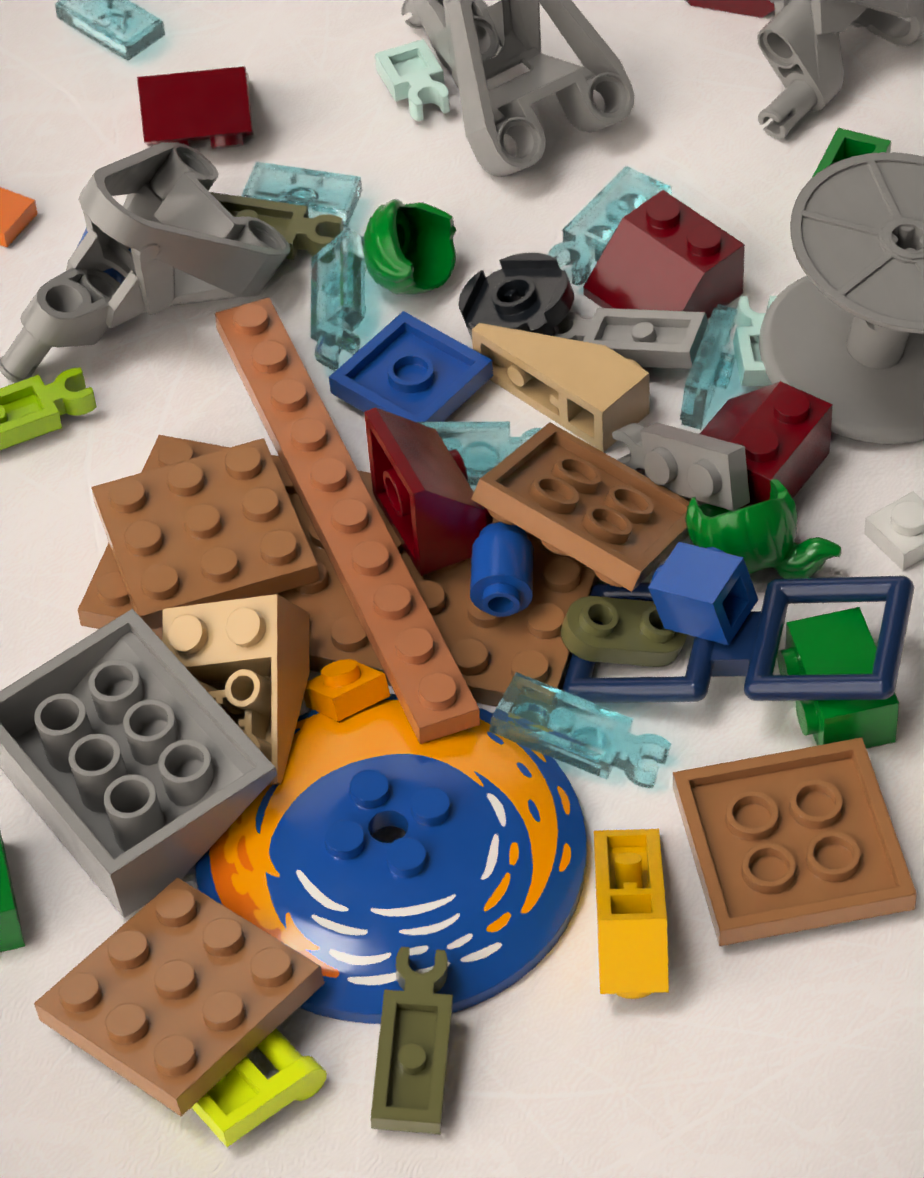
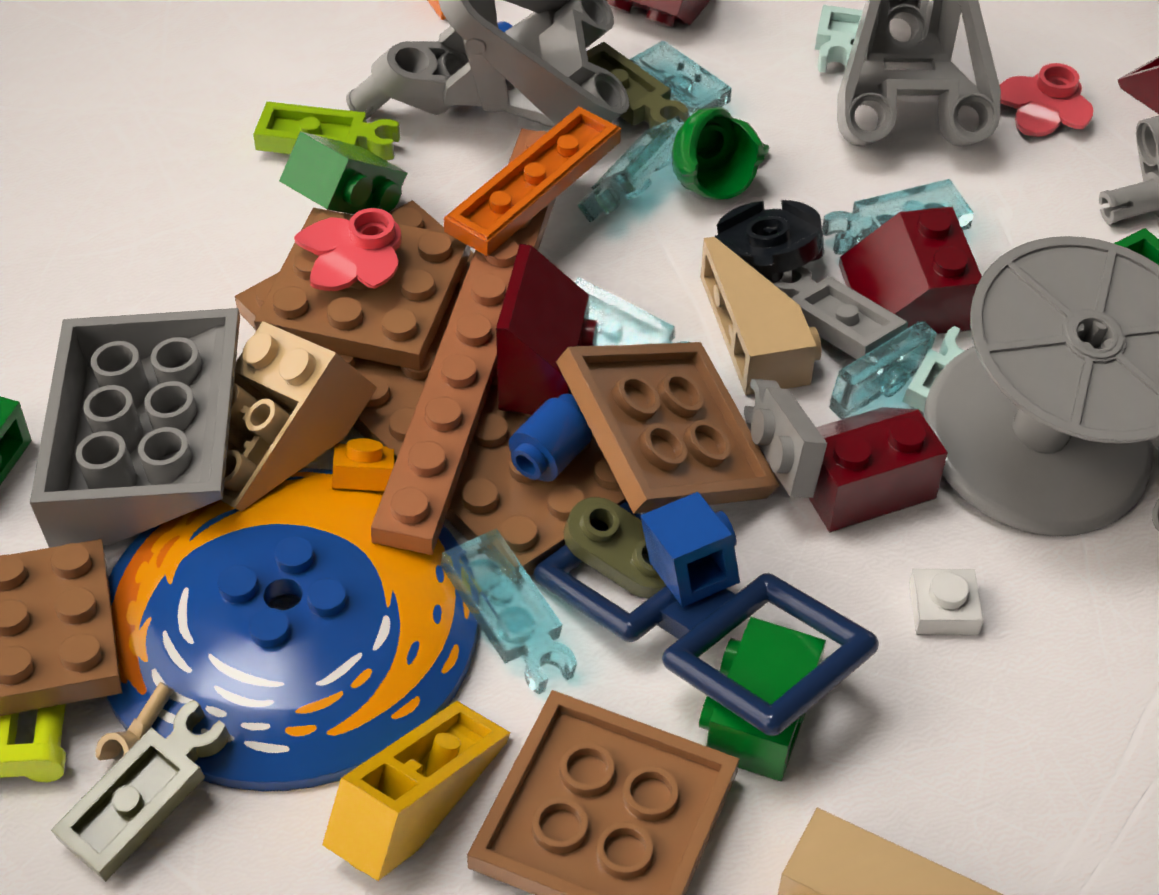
camera: 30 degrees right, 0 degrees up
(95, 444) = (342, 175): none -> green brick
(183, 502) = (352, 249): none -> coral plate
(282, 354) = (532, 181): none -> orange tile
(360, 1002) = (113, 743): none -> tan hand
(411, 372) = (639, 253): blue plate -> none
(648, 47) = (1047, 100): none -> coral plate
(760, 535) = (795, 531): green hair -> none

